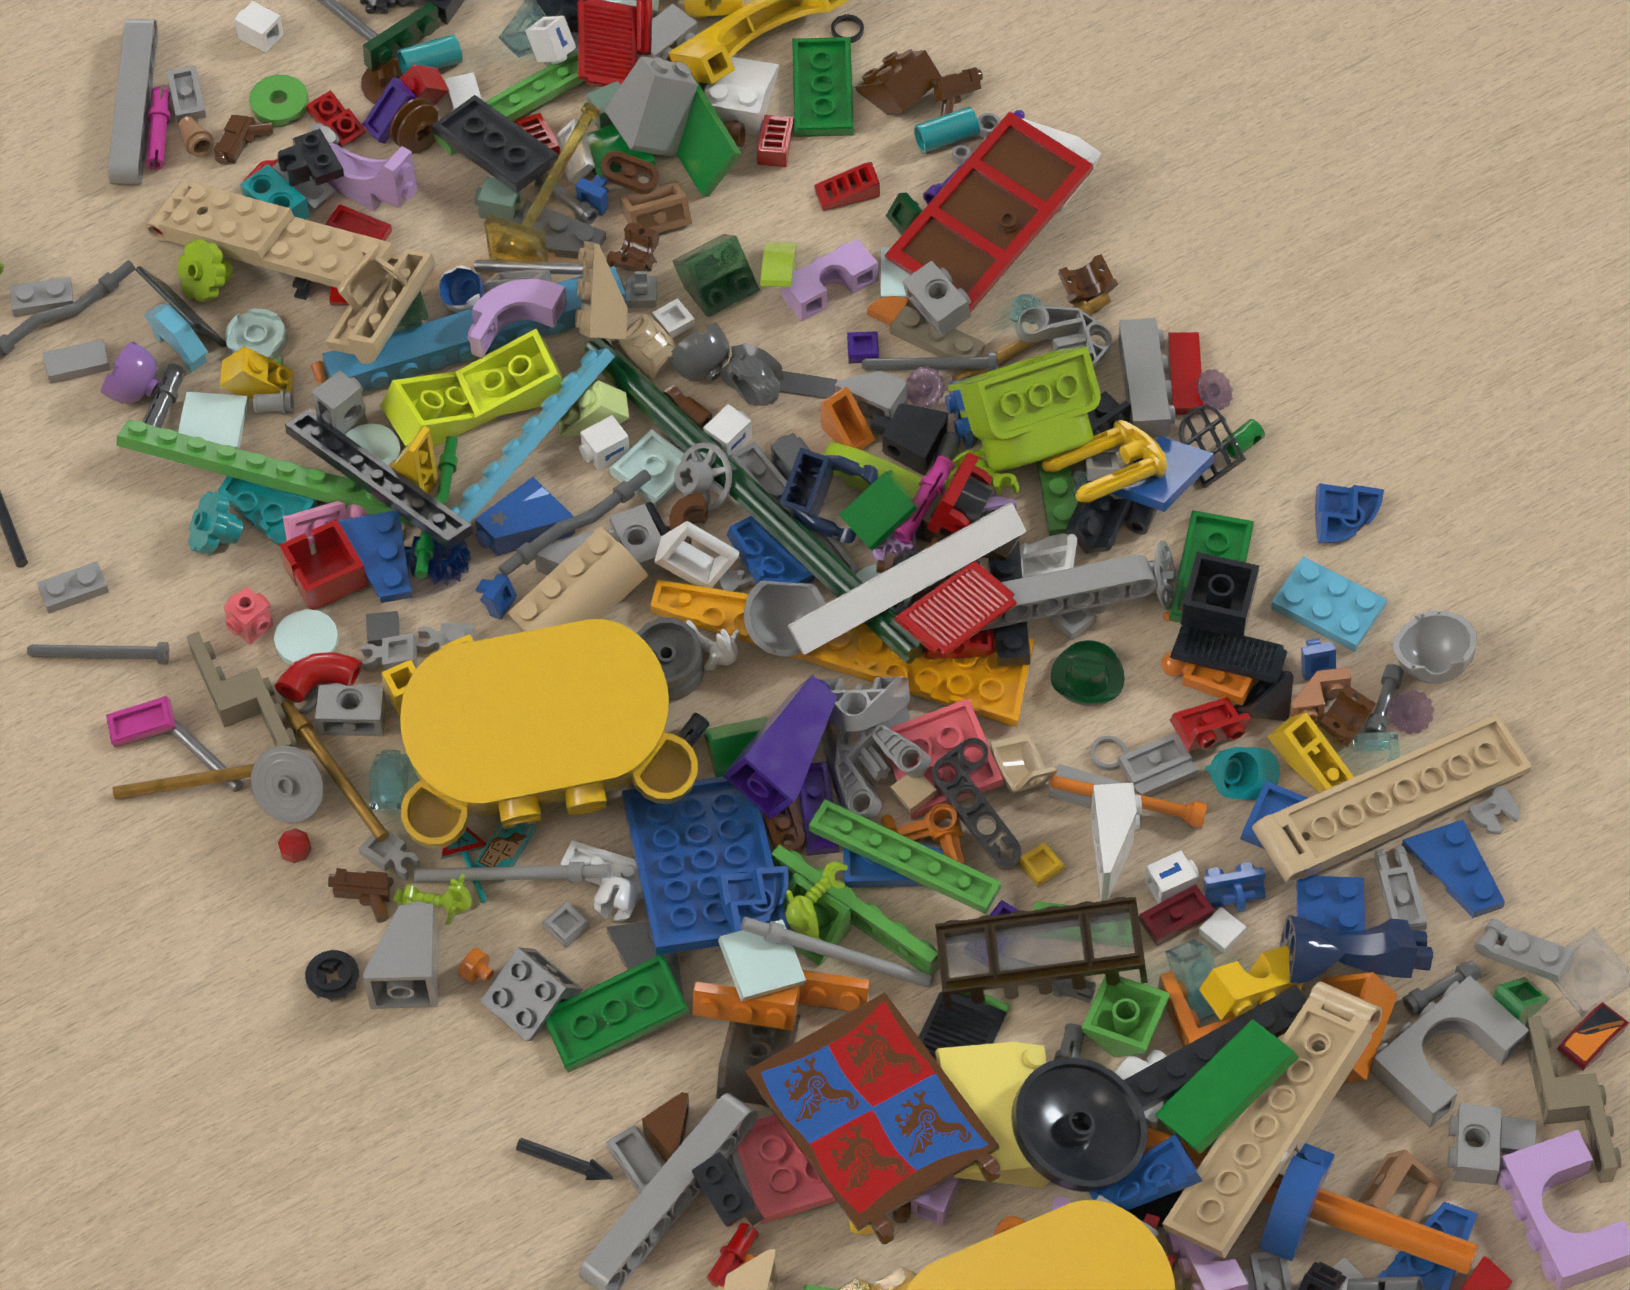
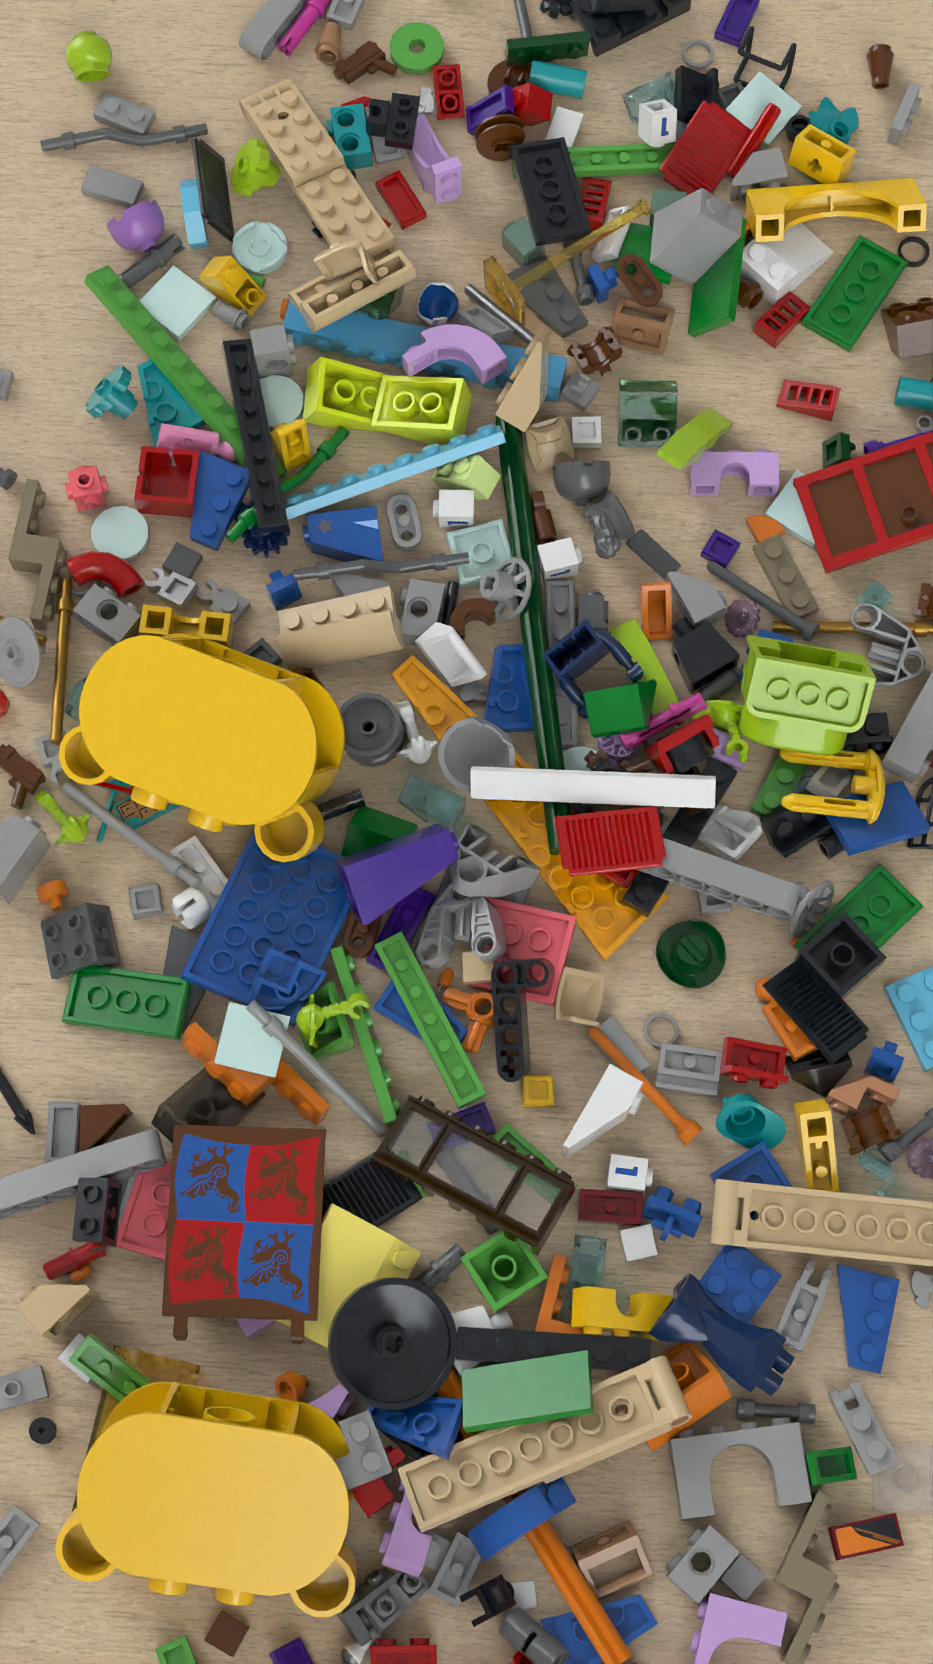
camera: 35 degrees right, 15 degrees up
(568, 481) = (404, 524): none -> light grey plate
(767, 684) = (432, 803): none -> clear light blue slope
(941, 313) = (798, 531): light grey brick -> none

